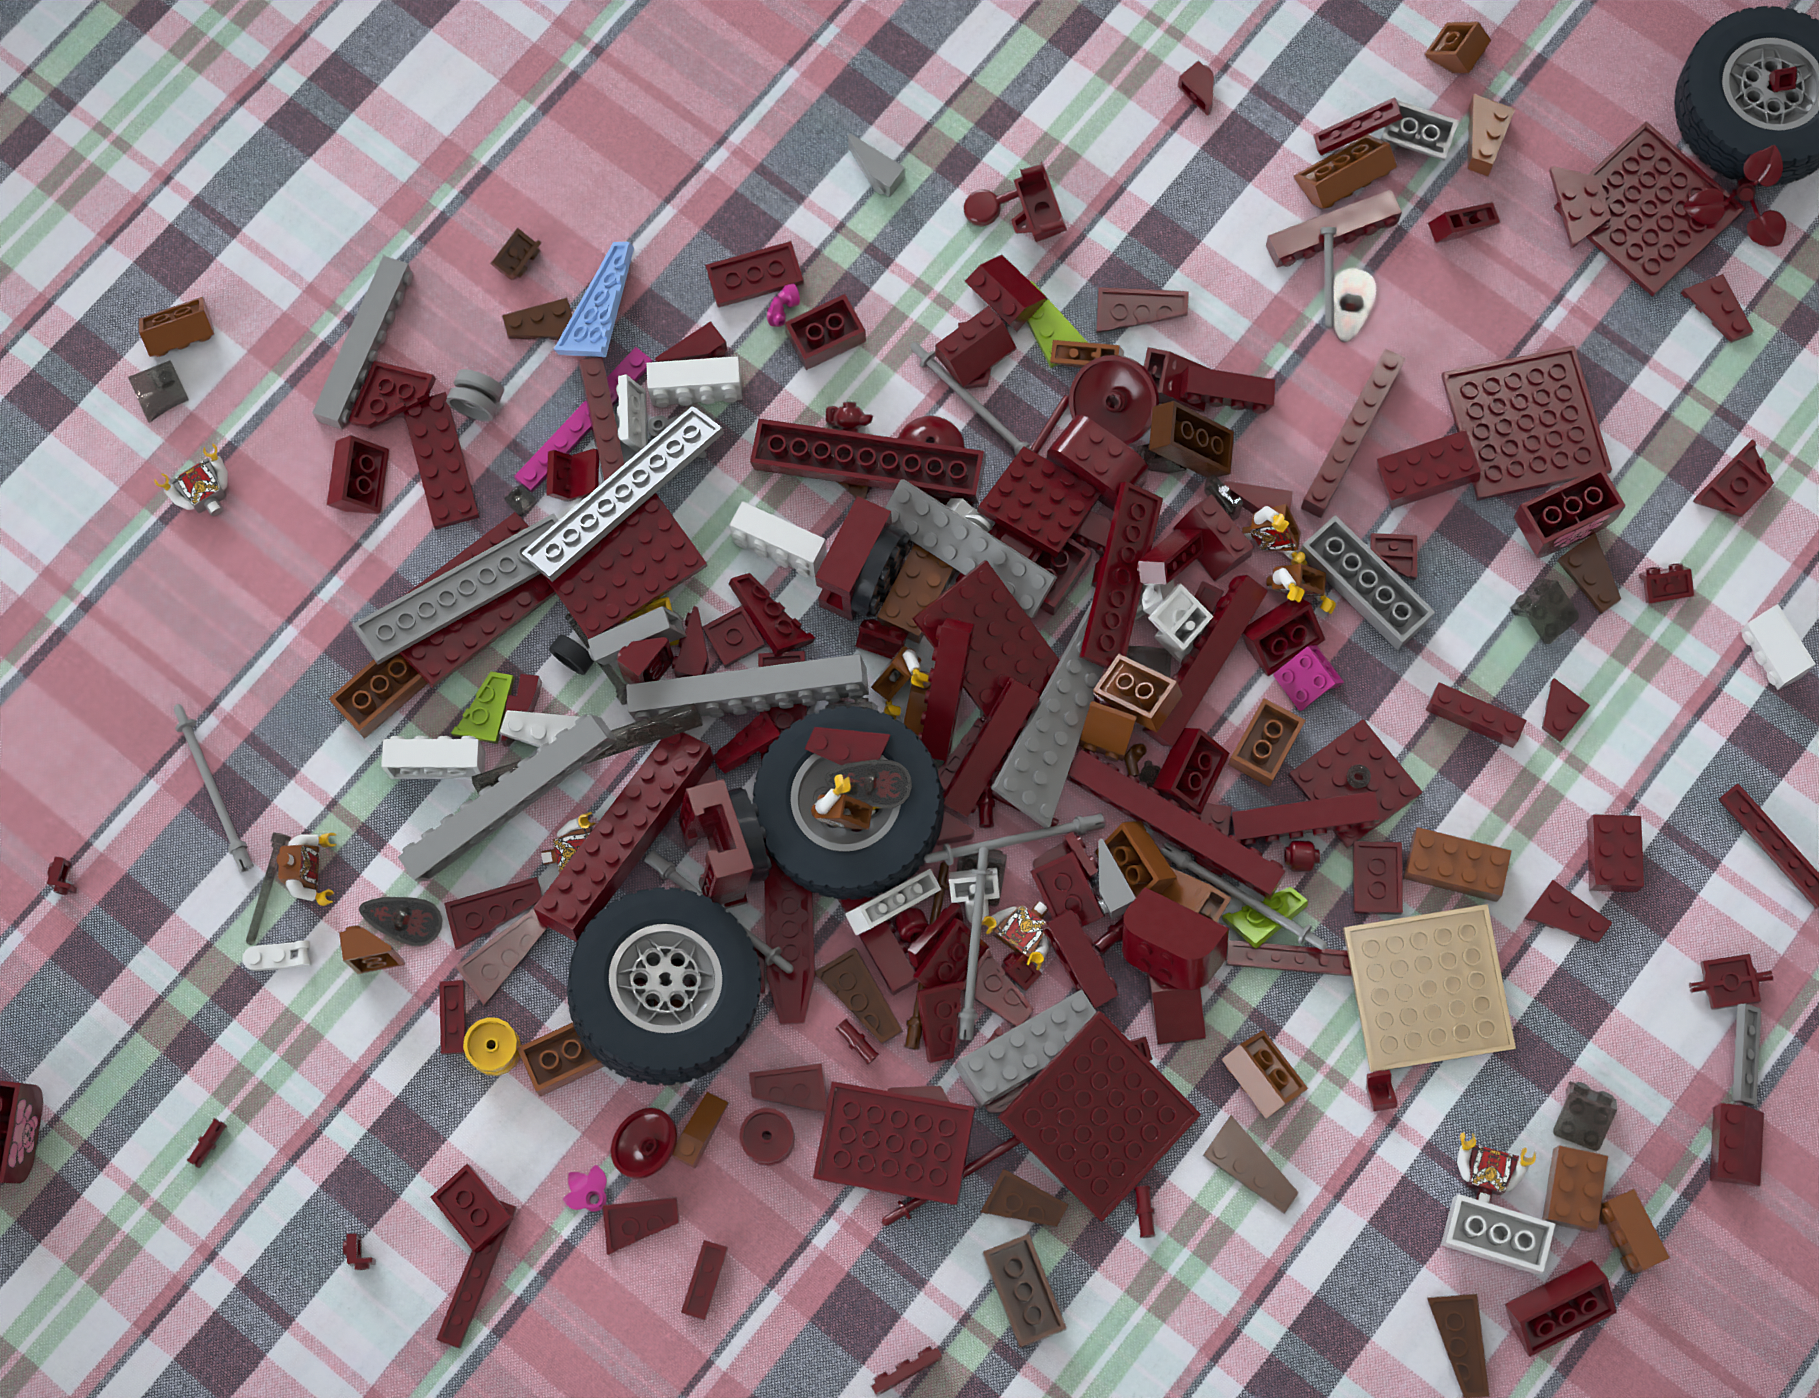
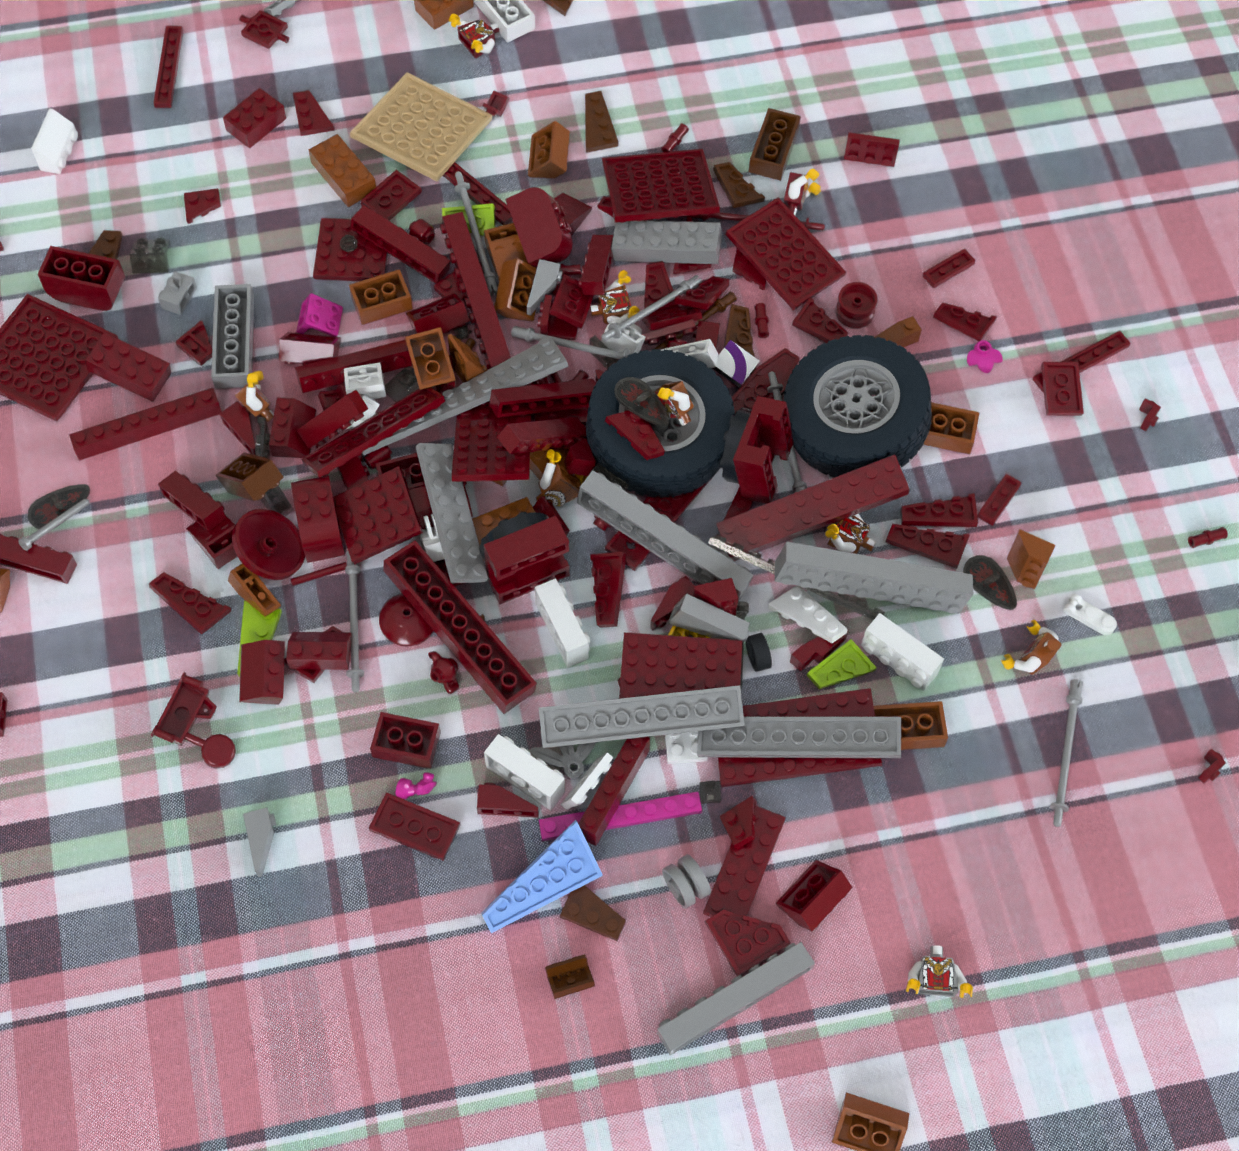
camera: 145 degrees left, 10 degrees down
(158, 389) = (918, 1083): clear smoke plate -> none
(277, 841) = (1042, 683): clear smoke piece -> none
(468, 485) = (740, 822): none -> dark red wing
(480, 1039) = (987, 461): yellow wheel -> none
(572, 475) = (660, 772): dark red bracket -> none
(637, 1136) = (943, 347): dark red dish -> none
(733, 636) = (641, 592): dark red plate -> none
(751, 739) = (689, 513): dark red wing -> none
(838, 955) = (735, 363): none -> tile
(900, 706) = (580, 459): none -> dark red slope
(944, 1238) = (798, 189): none -> torso
(1016, 966) = (635, 291): dark red bracket -> none
(1301, 581) = (272, 359): torso -> none
(1472, 588) = (177, 293): none -> light grey brick
(1476, 715) = (250, 230): dark red brick -> none
(1585, 1116) = (398, 24): clear smoke bracket -> none
(1667, 583) = (69, 219): dark red bracket -> none

